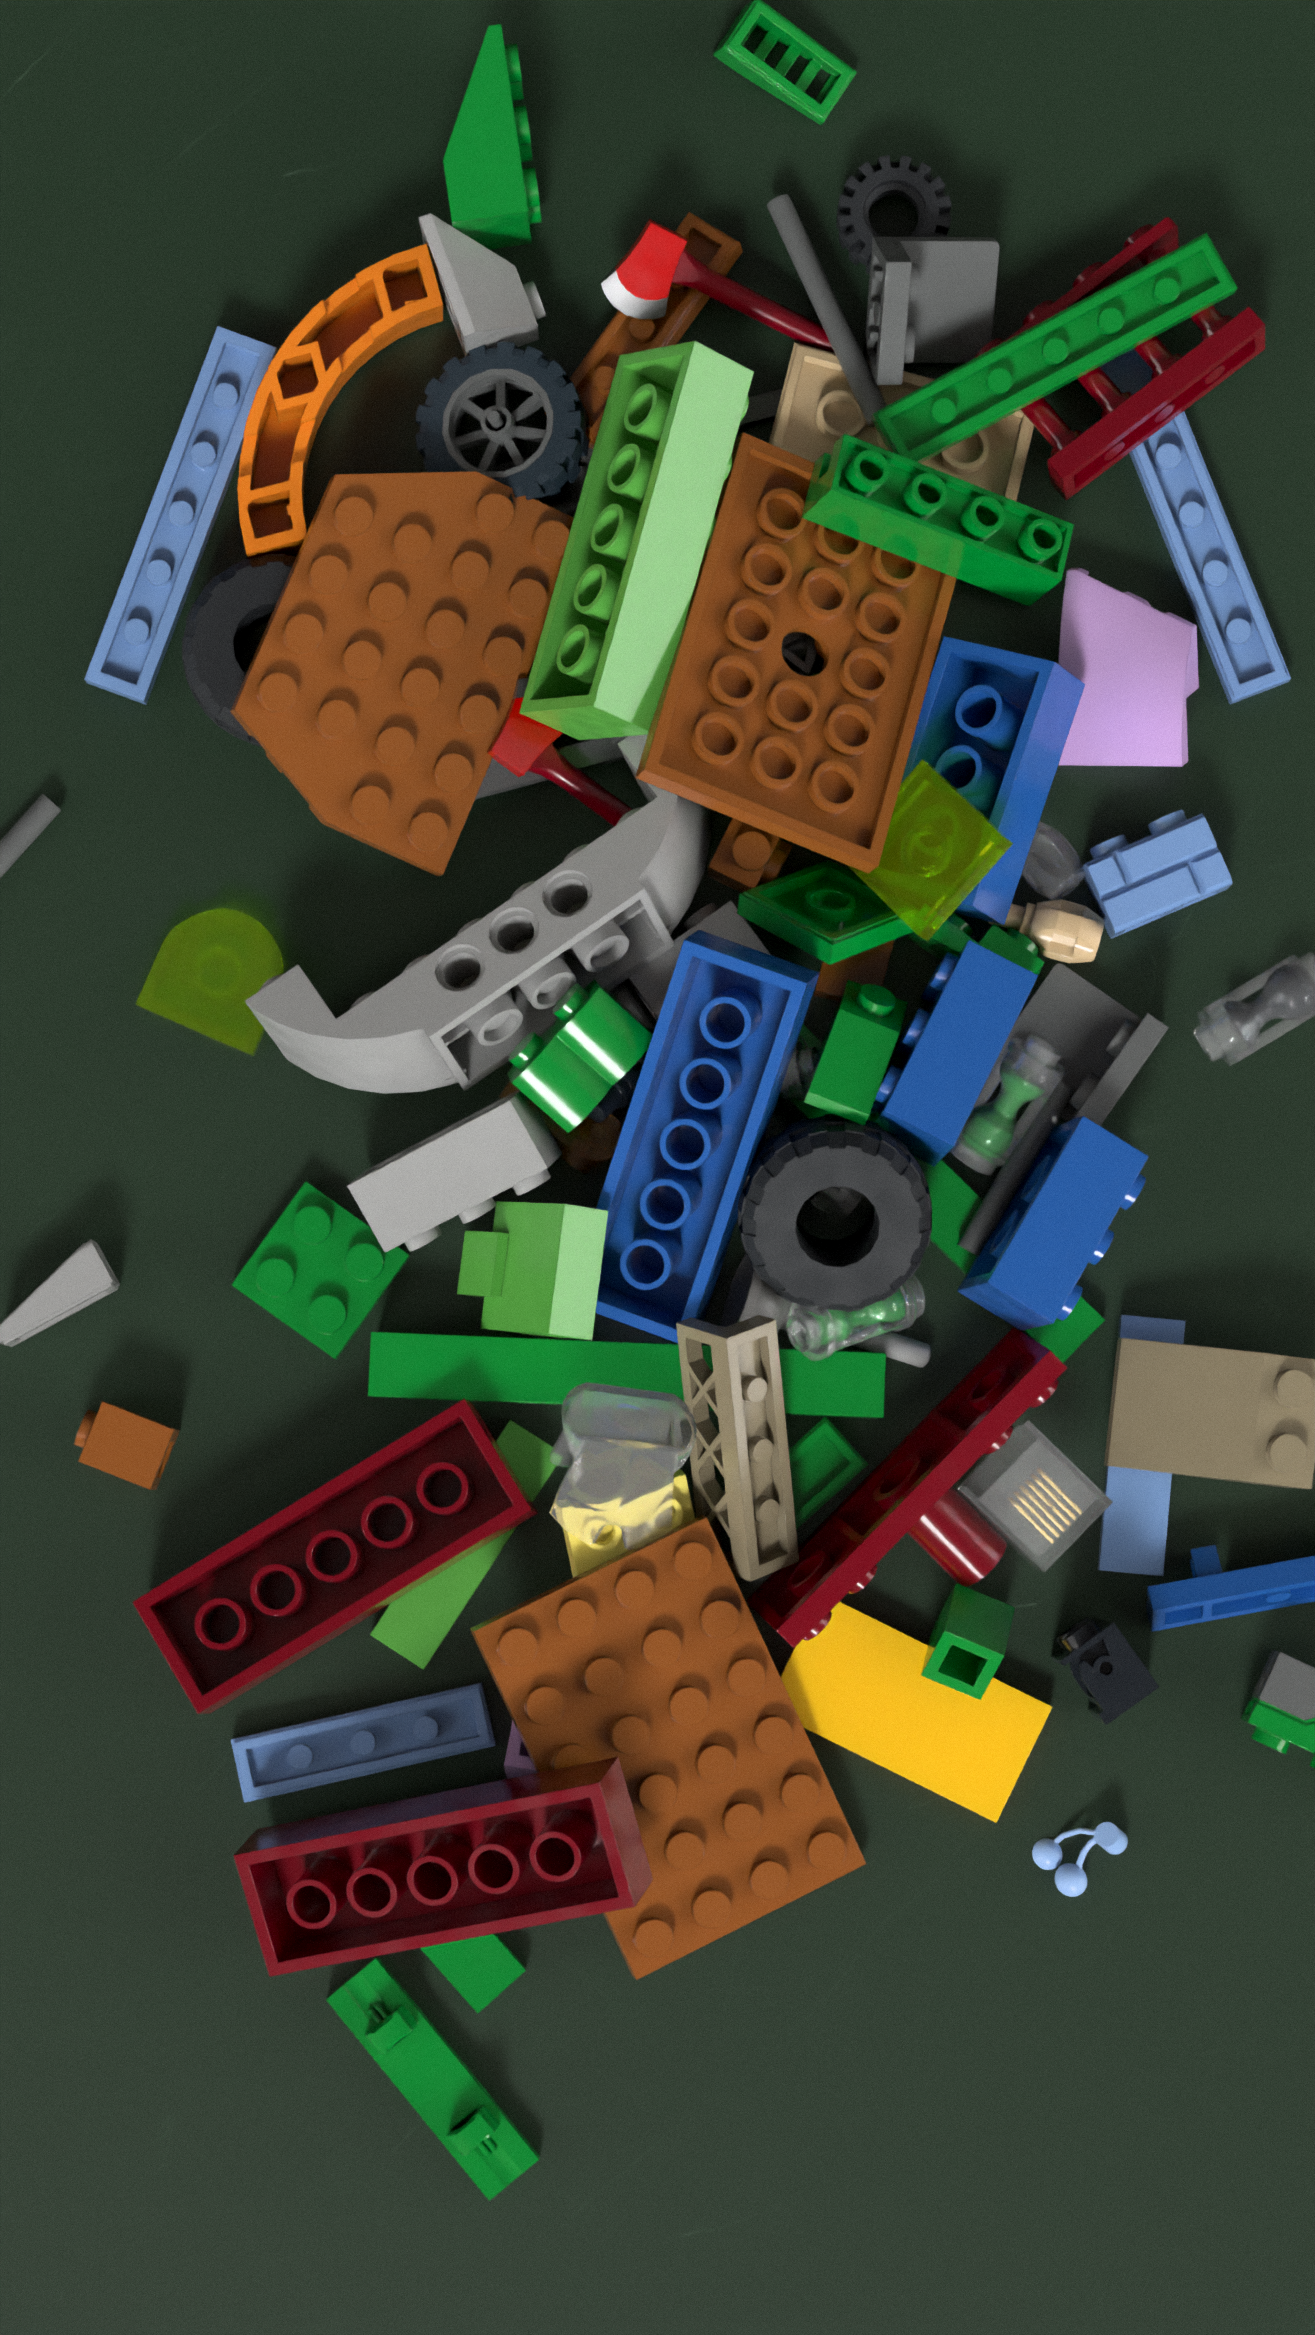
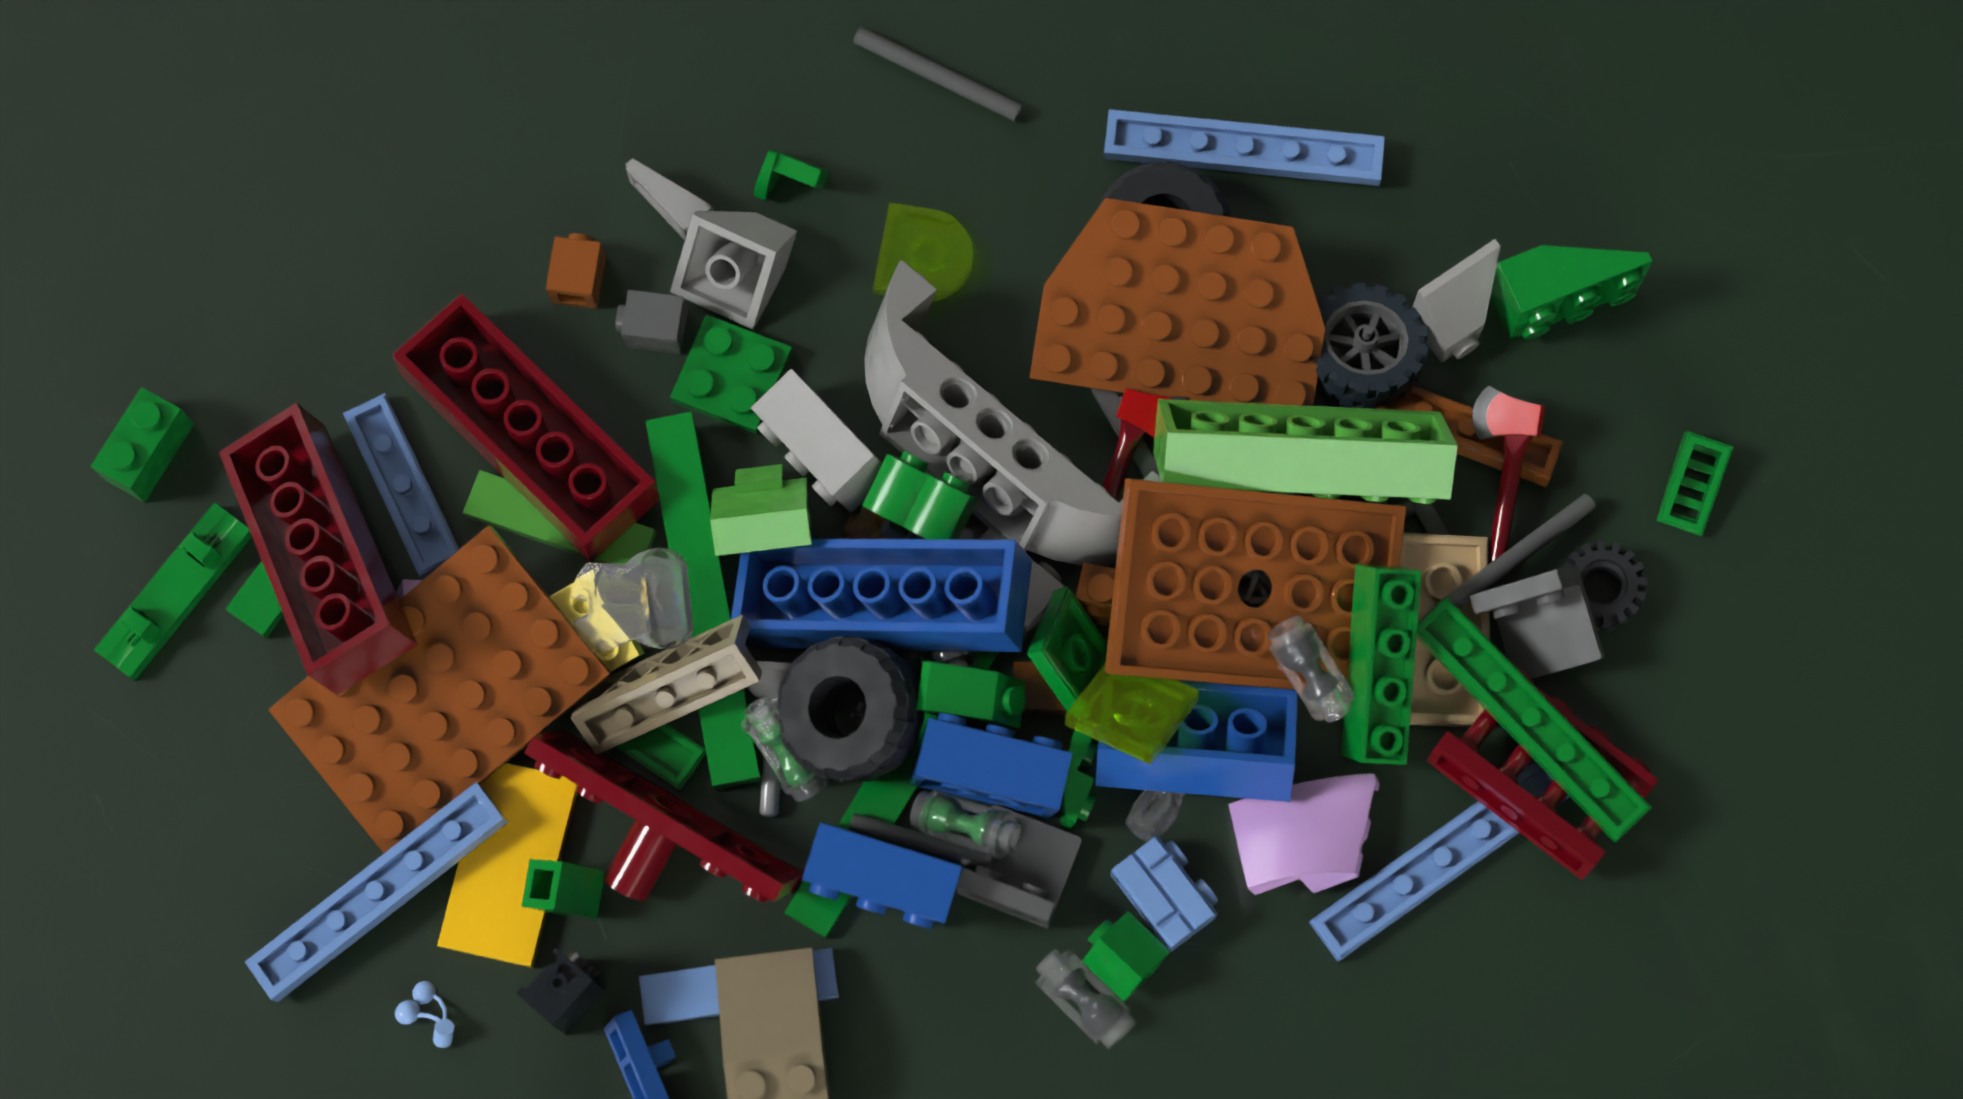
camera: 80 degrees right, 10 degrees down
(56, 1122) = (790, 166): none -> green tile
(171, 1232) = (733, 263): none -> light grey slope
(224, 1358) = (652, 321): none -> dark grey brick
(224, 2081) = (142, 444): none -> green brick
(305, 379) = (1356, 202): orange brick -> none
(900, 619) = (1298, 649): none -> clear piece
(910, 1885) = (376, 892): none -> medium blue plate
(1033, 1496) = (678, 909): clear piece -> none
(1058, 929) = (1105, 830): tan piece -> none
(1225, 944) = (1124, 955): none -> green brick

